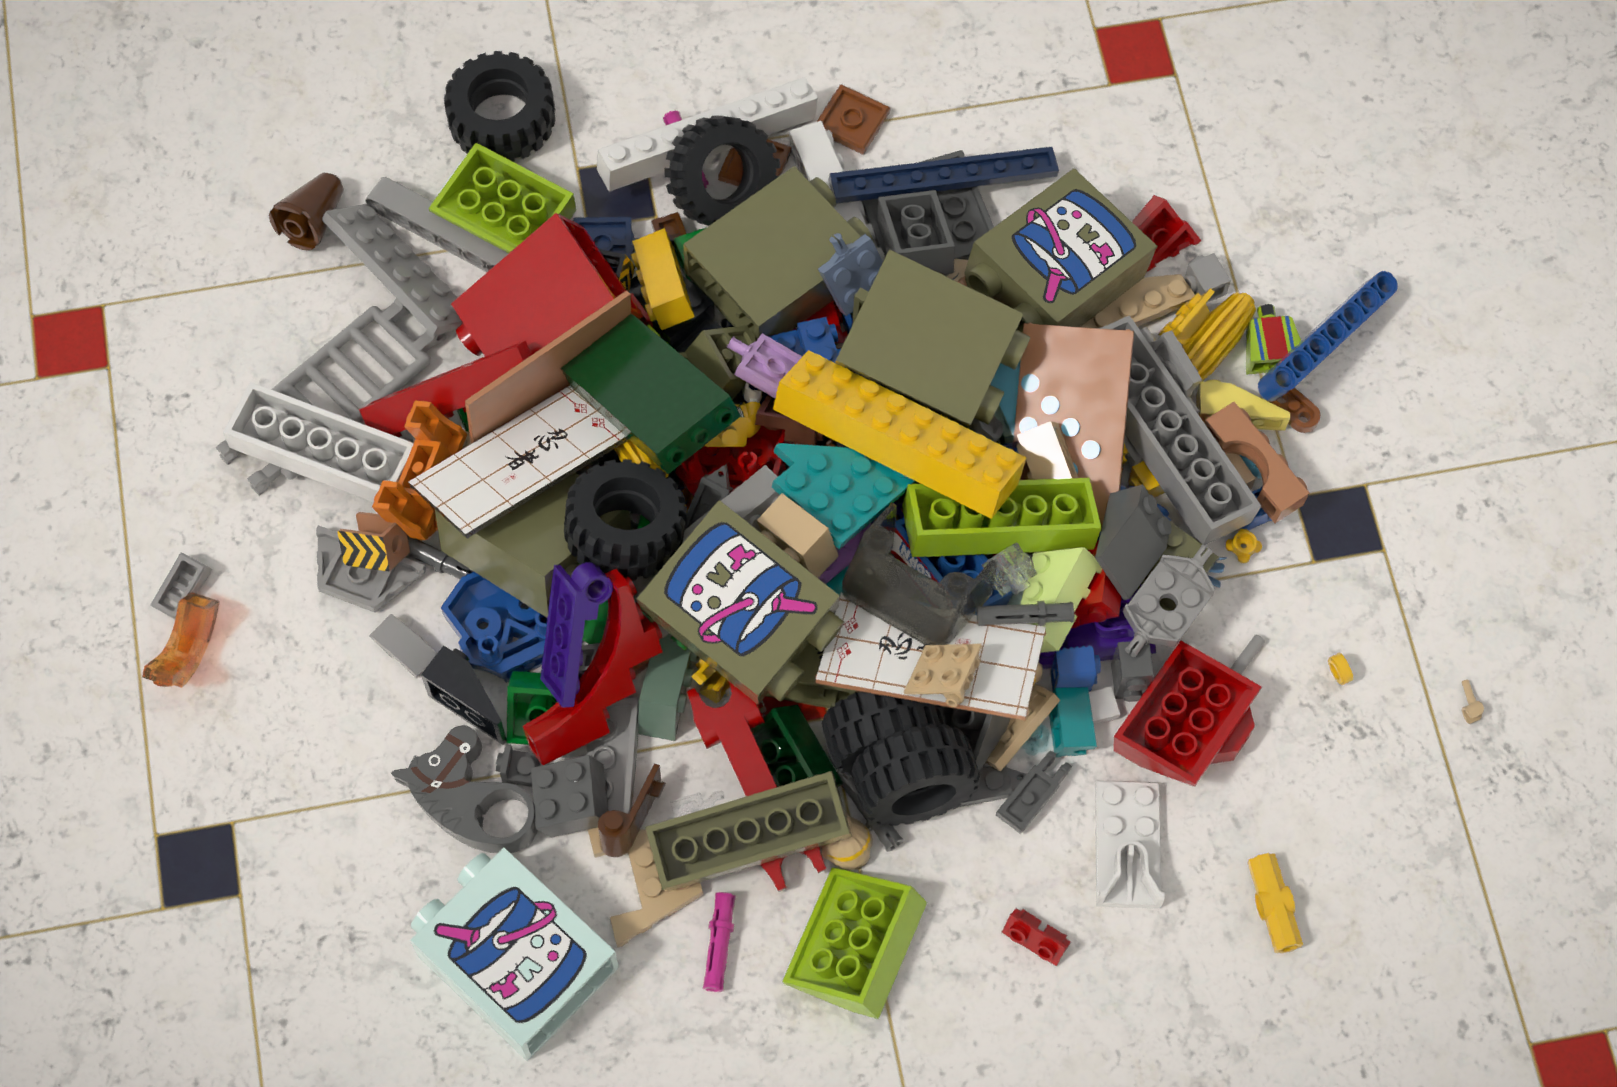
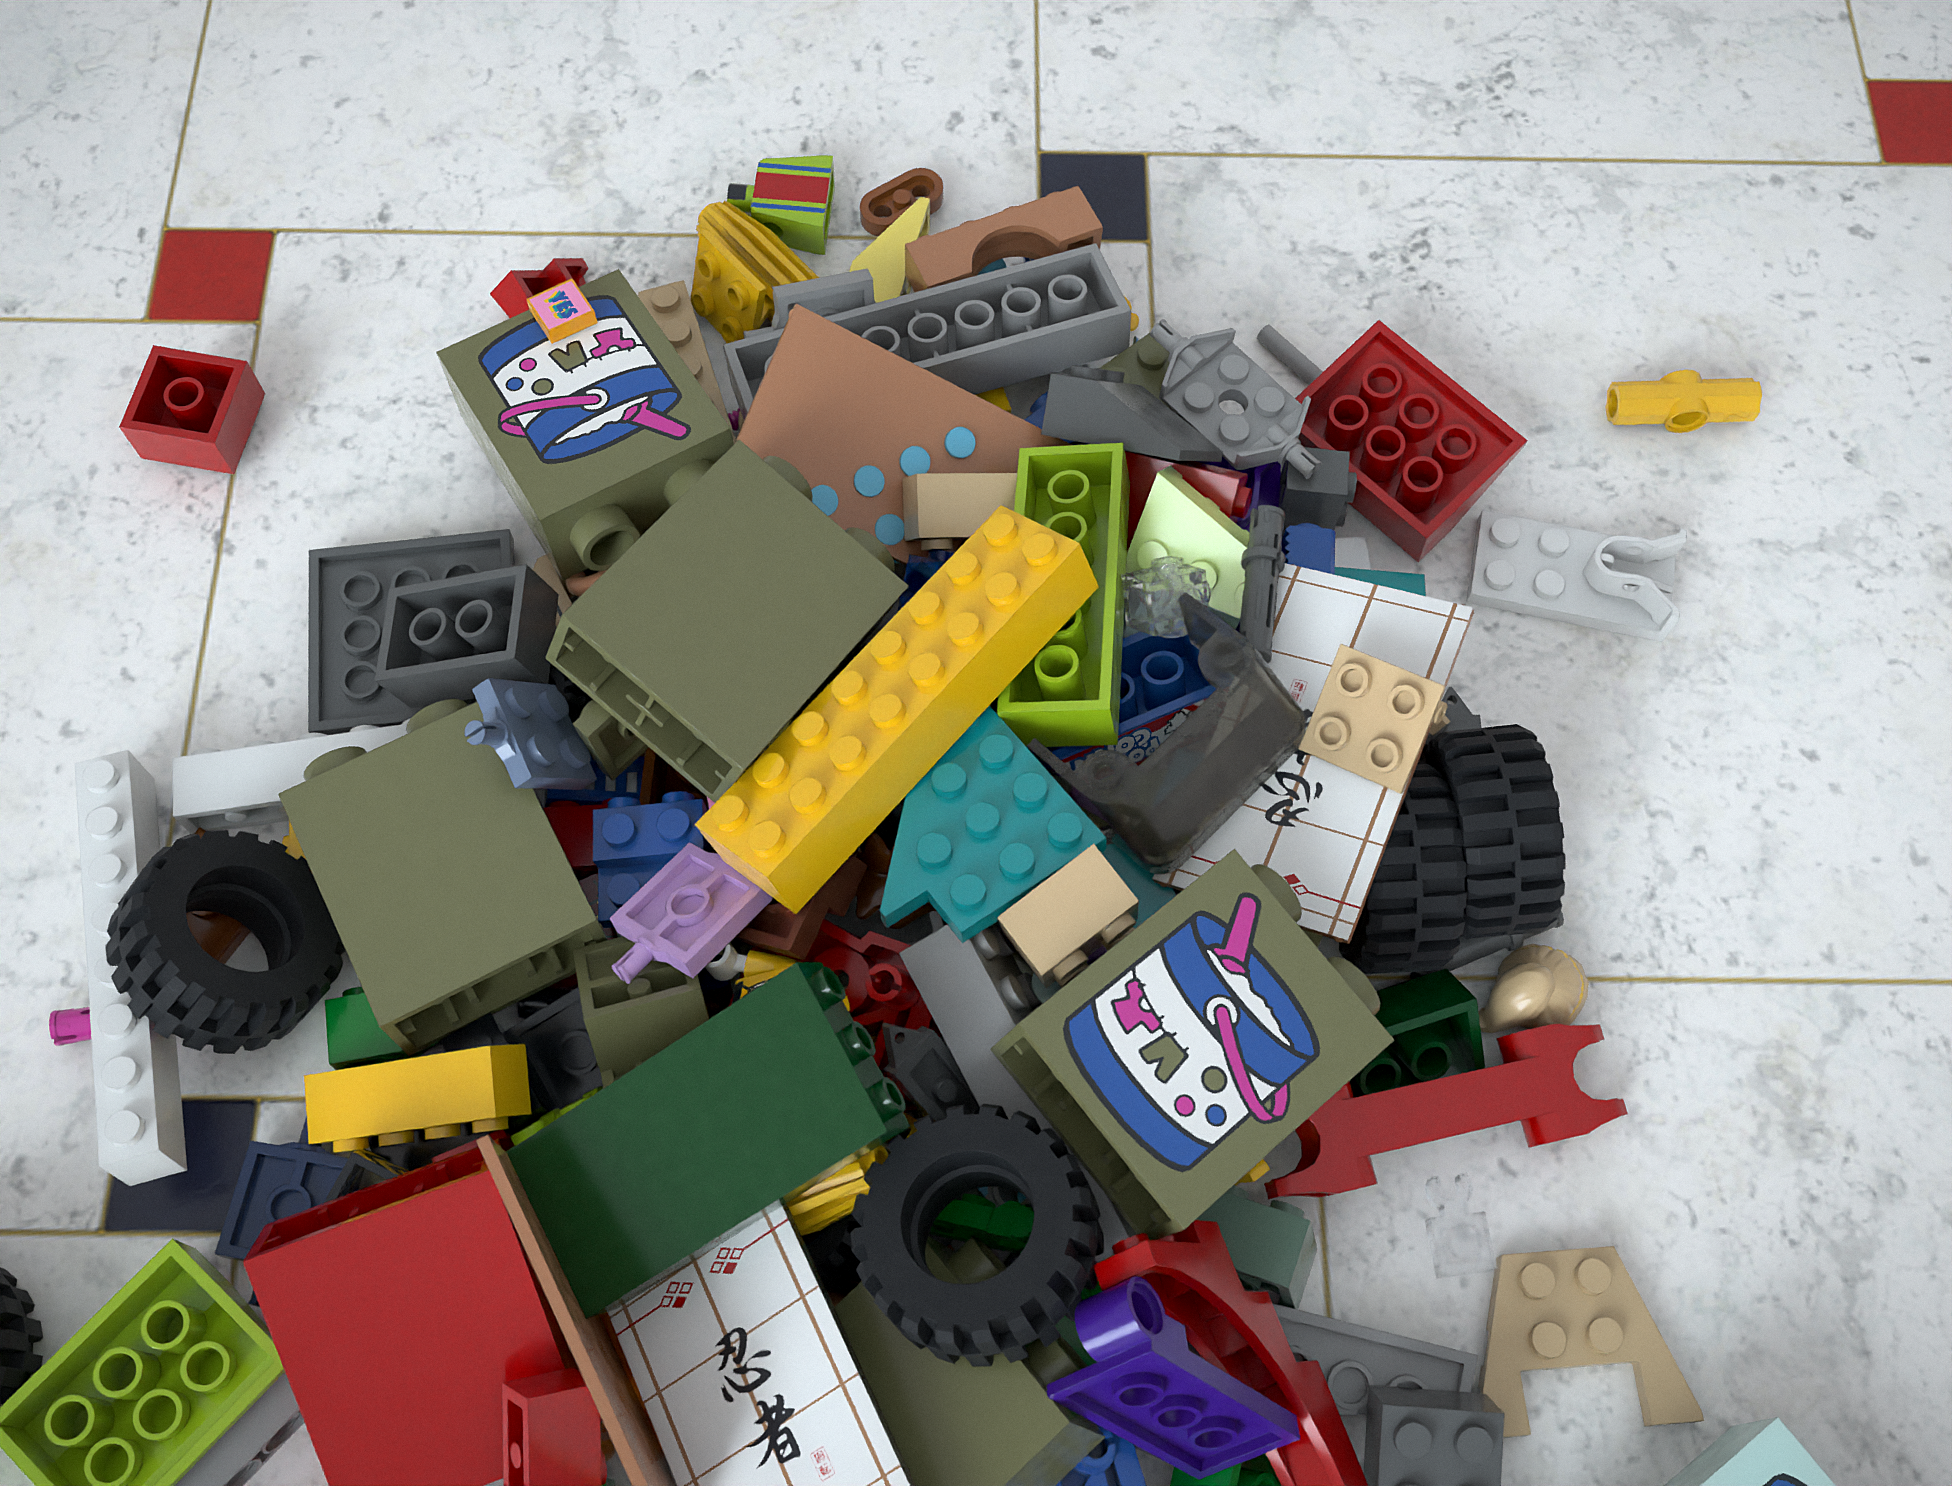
camera: 80 degrees left, 0 degrees up
(620, 829) = (1517, 1377): reddish brown door -> none
(672, 225) = (288, 1070): reddish brown plate -> none
(720, 927) = (1685, 1227): dark pink pin -> none
(748, 831) = (1562, 1135): olive brick -> none
(853, 118) = (178, 713): dark orange tile -> none
(855, 941) = (1719, 1009): lime slope -> none
(944, 174) = (353, 585): dark blue plate -> none
(1024, 930) = (1728, 716): red hinge -> none
(1032, 794) = (1492, 691): dark grey hinge -> none
(1033, 68) = (193, 409): none -> red brick
(1115, 222) = (562, 310): none -> tile
(1206, 274) = (655, 257): light grey brick -> none
(1327, 336) = (814, 119): blue beam -> none
(1340, 669) = (1331, 238): yellow tile -> none
(1474, 710) = (1410, 102): tan hand -> none

